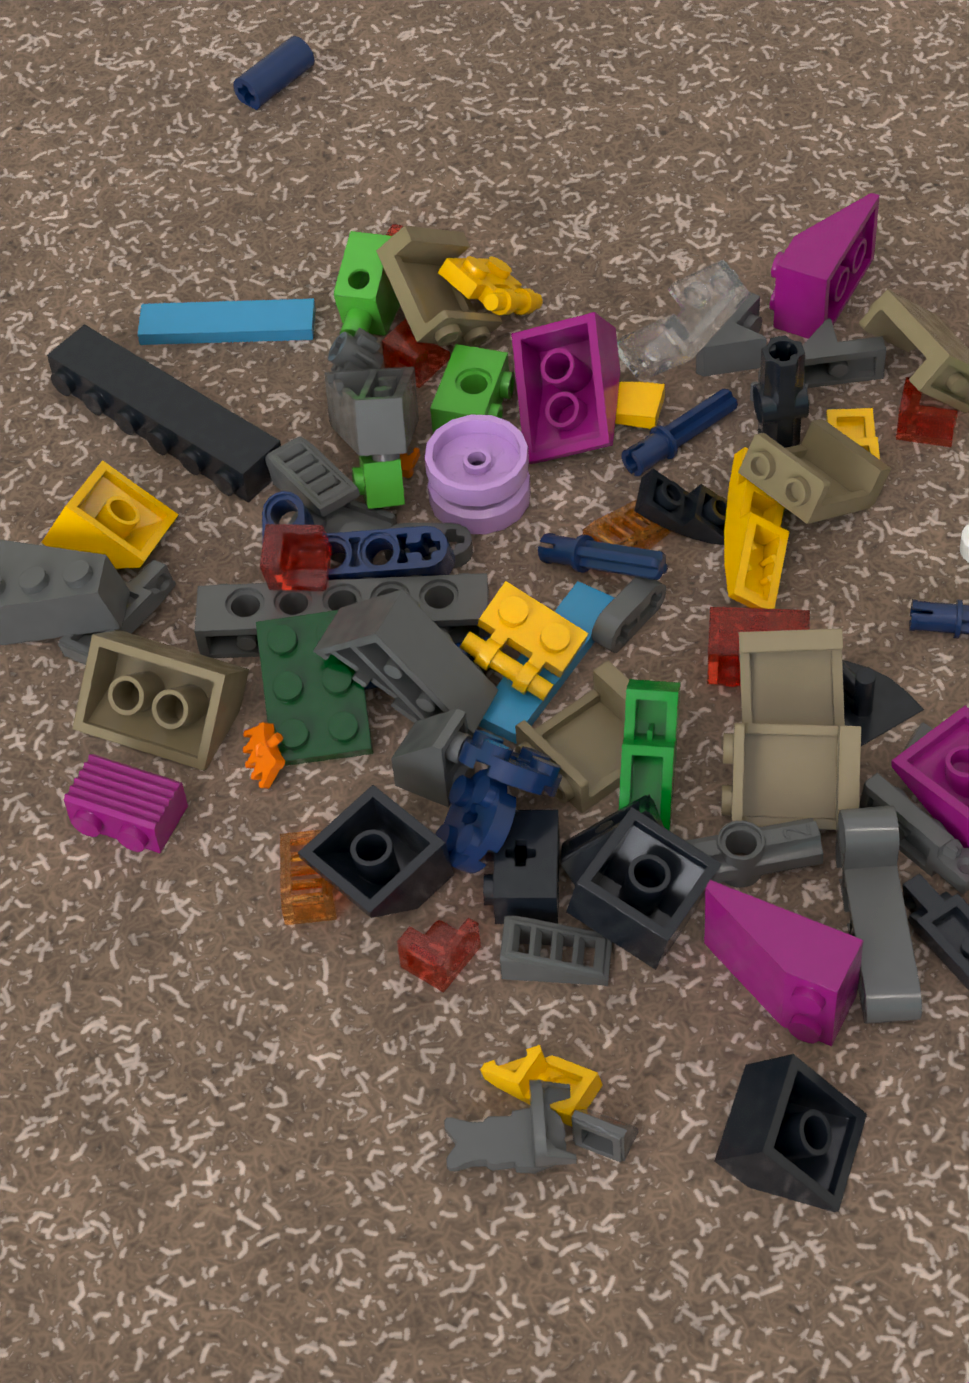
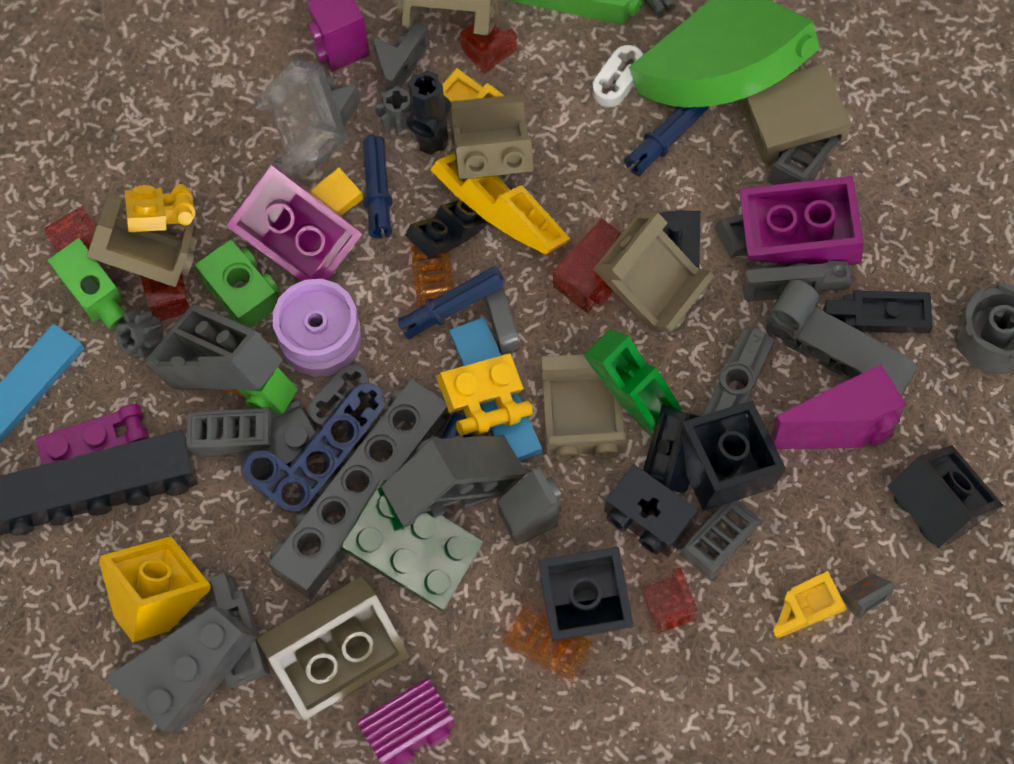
camera: 55 degrees left, 15 degrees up
(232, 394) = (92, 435): none -> magenta plate
(264, 753) = (433, 608): orange piece -> none
(295, 557) = (312, 486): clear red panel -> none
(476, 820) = (616, 501): dark blue plate -> none
(524, 1141) = (840, 643): dark grey hair -> none
(525, 771) = (590, 466): dark blue plate -> none
(791, 773) = (711, 313): dark tan panel -> none

